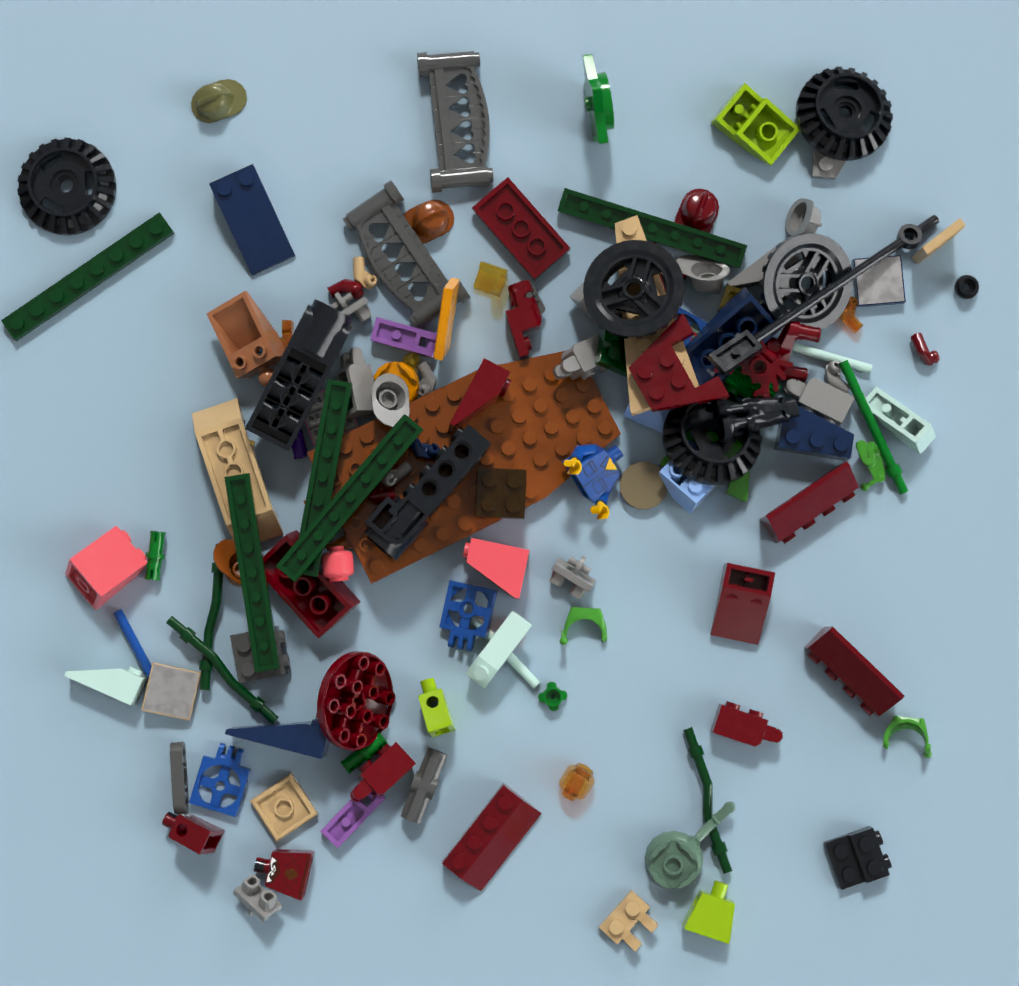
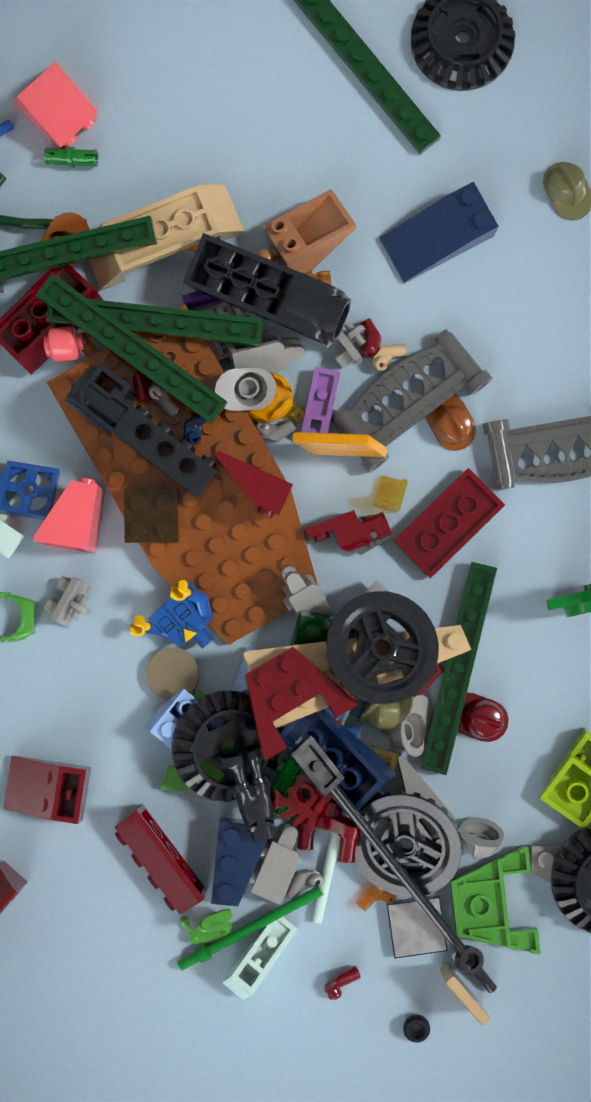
camera: 85 degrees right, 0 degrees up
(694, 295) = (386, 717): none -> olive piece
(861, 222) = (482, 905): none -> bright green wing

